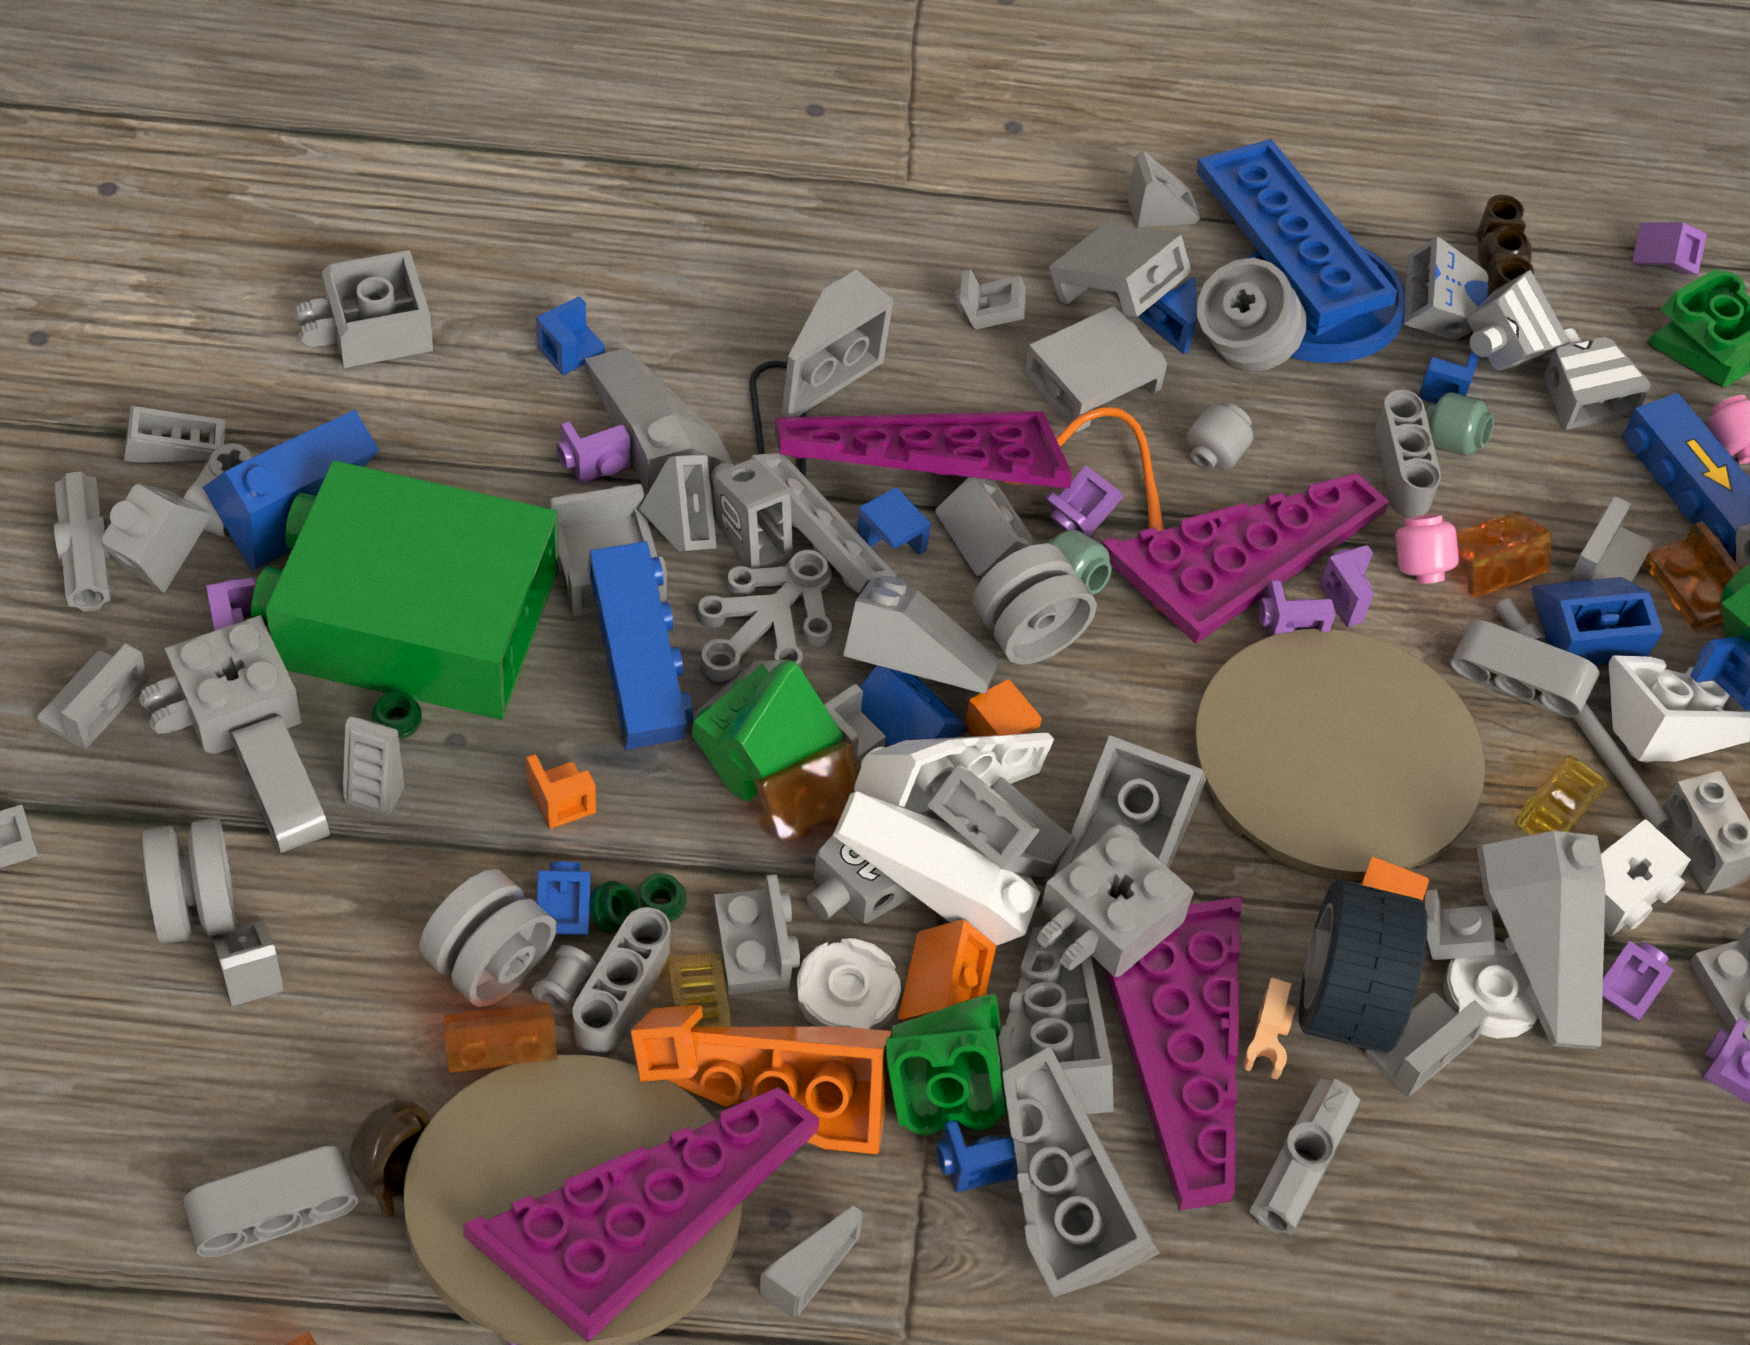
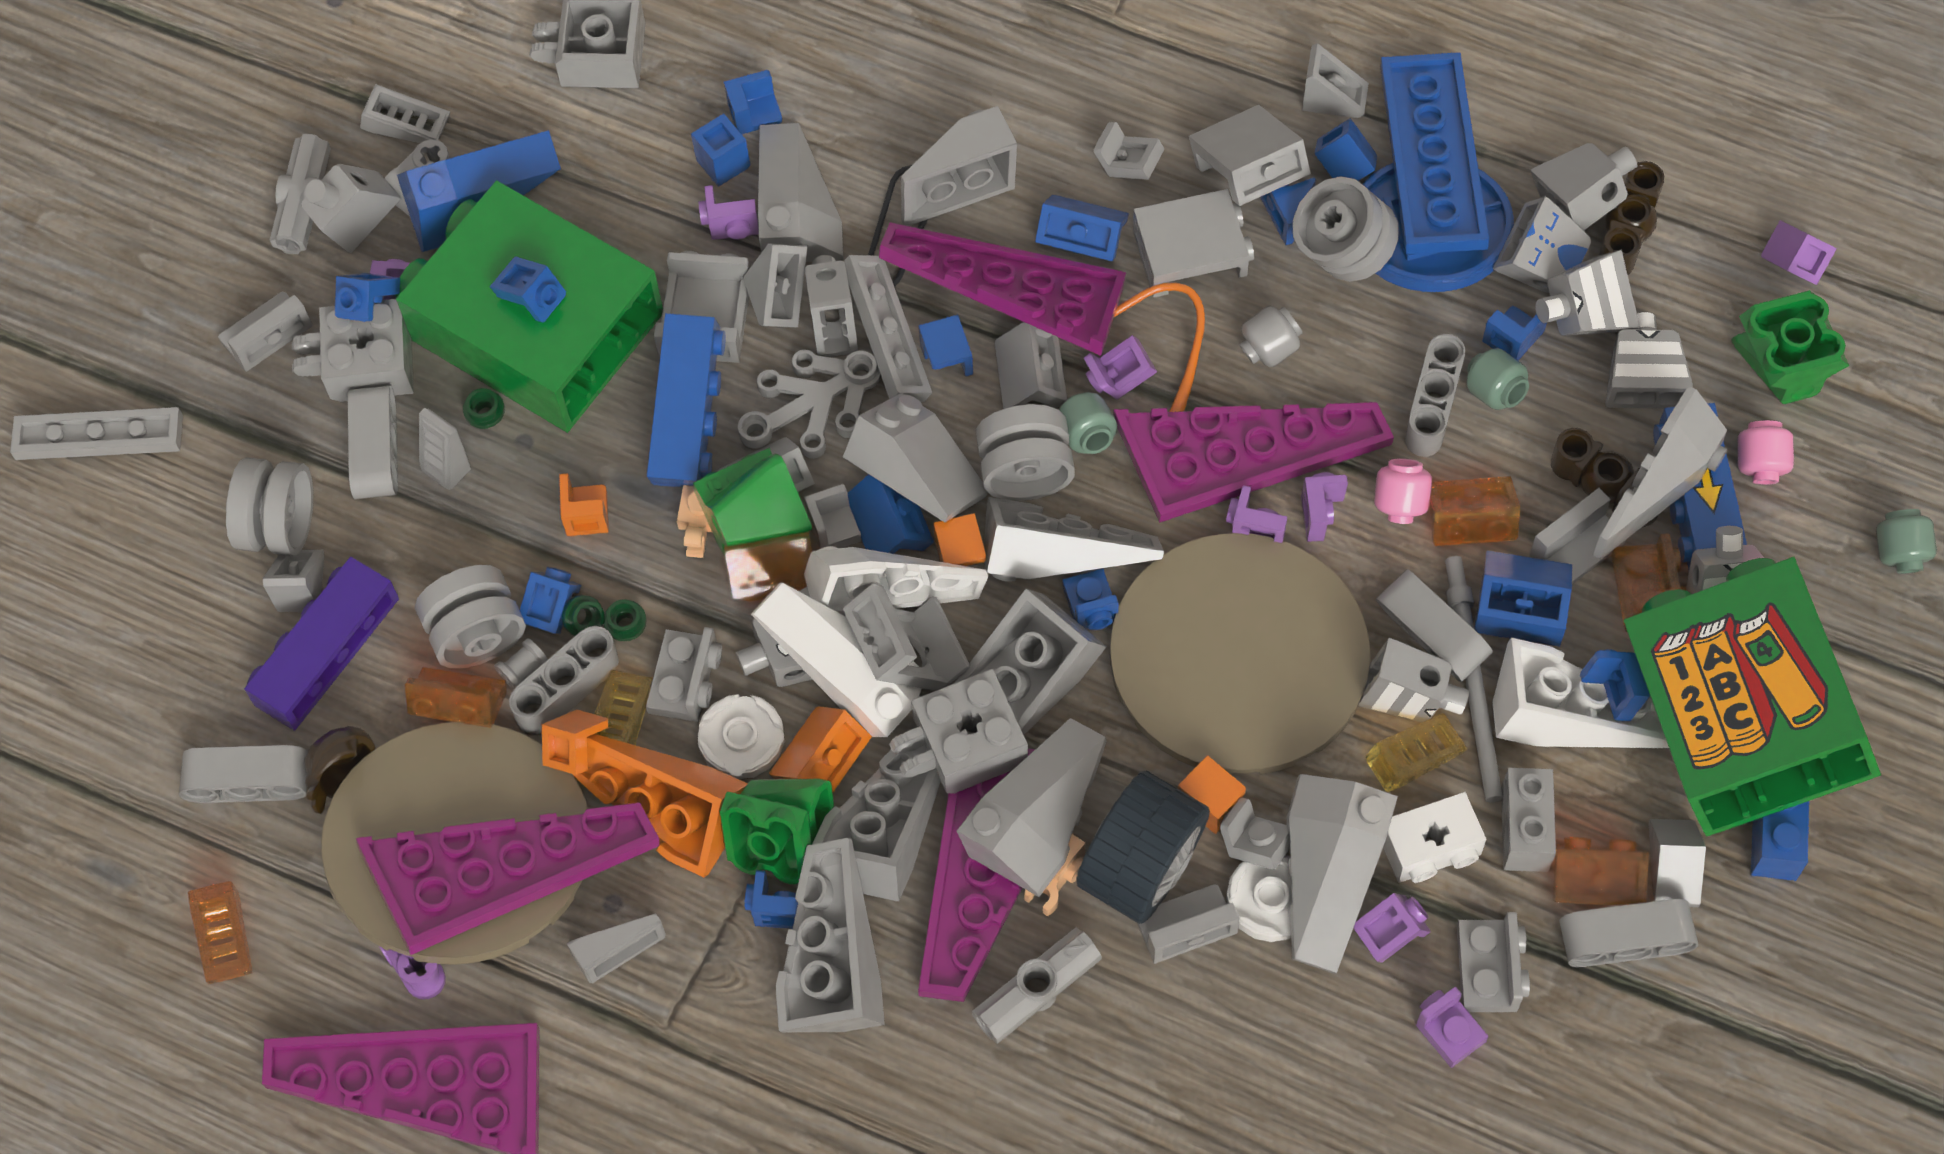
camera: 30 degrees right, 10 degrees up
(217, 619) = (358, 293): none -> blue bracket
(307, 1023) = (321, 643): none -> dark purple brick
(425, 552) = (529, 286): none -> blue bracket
(557, 387) = (721, 150): none -> blue panel
(693, 769) = (693, 521): none -> light nougat plate
(976, 381) = (1080, 227): none -> blue panel
(1086, 701) = (1032, 545): none -> wedge
(1164, 734) = (1091, 599): none -> blue bracket
(1206, 249) = (1346, 152): none -> blue panel
(1224, 969) = (1031, 813): none -> light grey wedge
(1457, 217) = (1585, 182): none -> light grey torso
(1532, 729) = (1411, 684): none -> light grey torso
(1576, 478) = (1591, 465): none -> dark brown piece
(1681, 444) = (1682, 455): none -> light grey wedge

